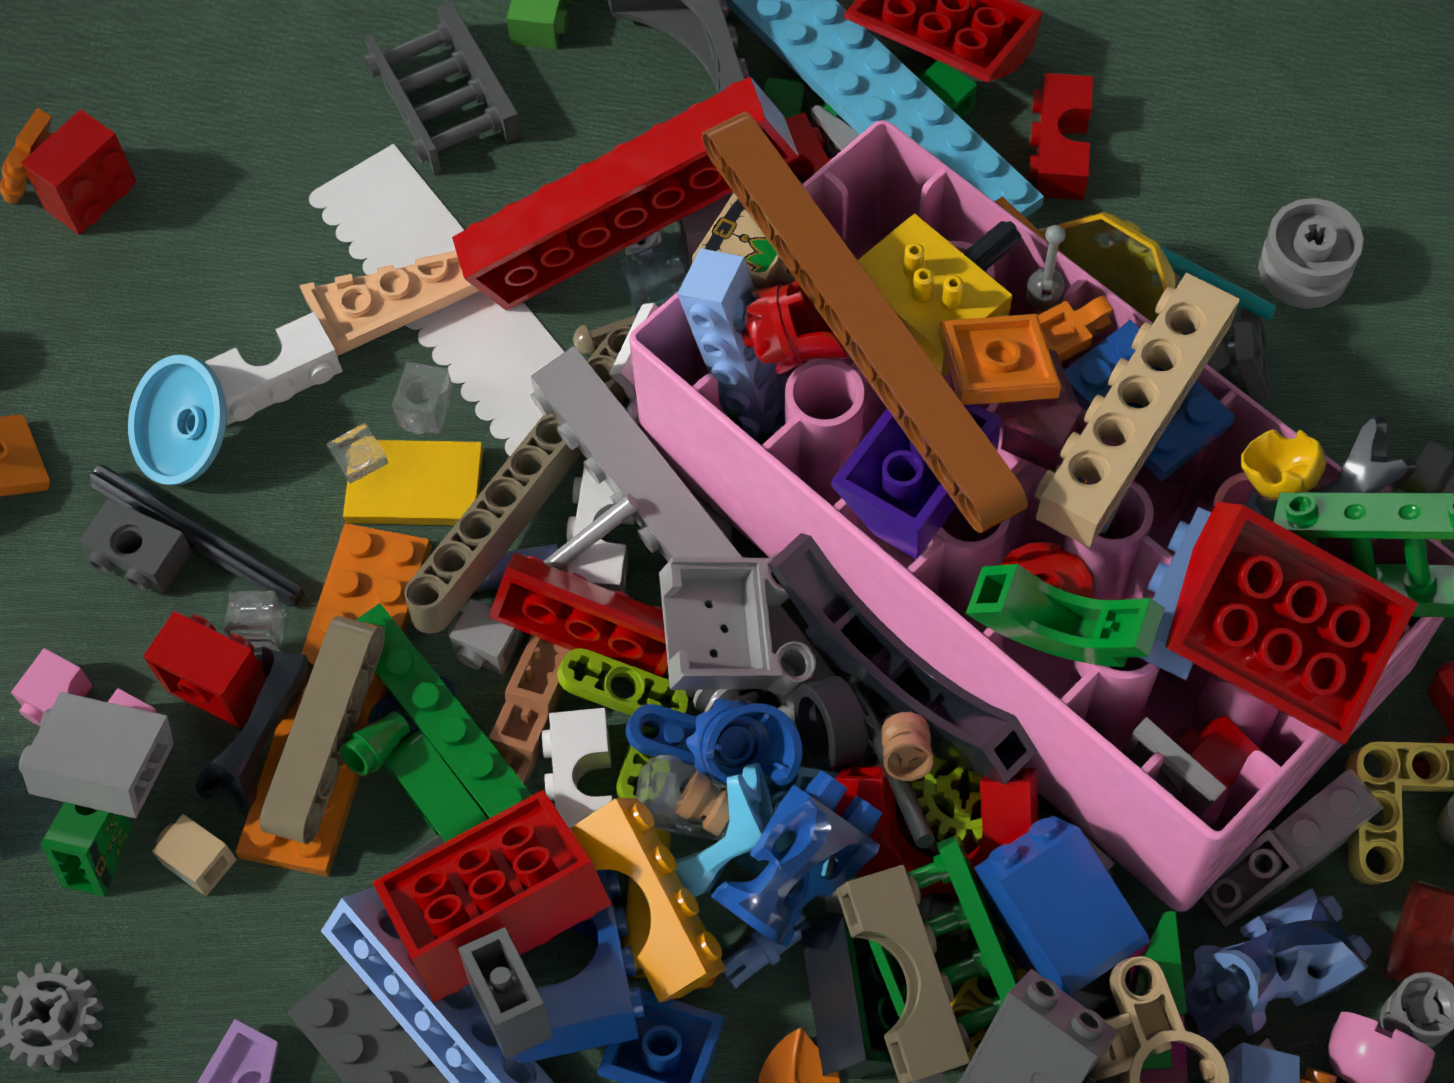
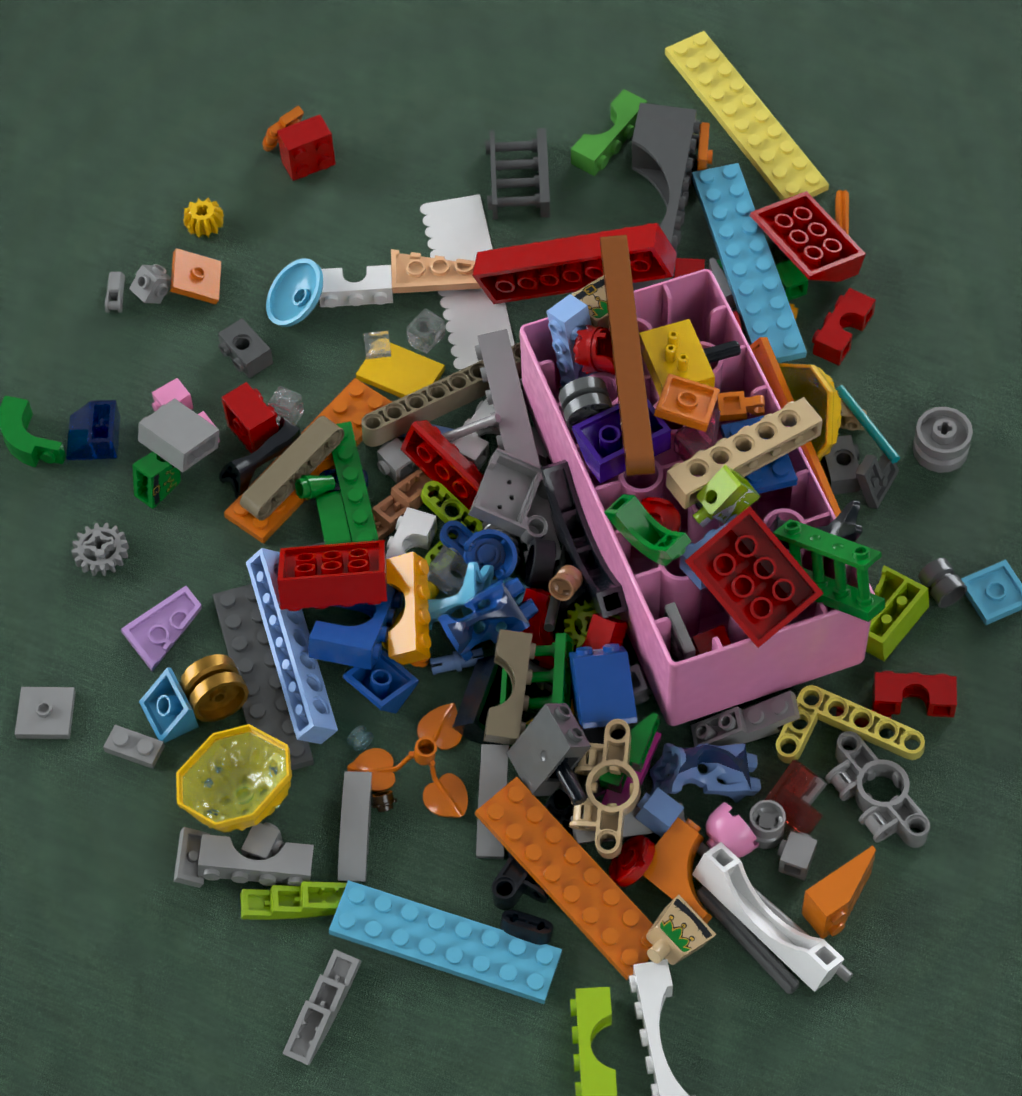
camera: 25 degrees right, 5 degrees down
(193, 854) = (203, 504): tan brick -> none
(198, 536) = (279, 356): black axle -> none
(505, 993) = (313, 613): dark grey brick -> none
(704, 802) = (456, 574): medium nougat wheel -> none
(786, 95) = (700, 249): green slope -> none
(822, 428) = (583, 399): none -> dark grey wheel
(1047, 278) = (741, 377): hinge -> none
(1159, 482) = (724, 496): none -> lime torso
(1283, 464) = (805, 508): yellow hair -> none

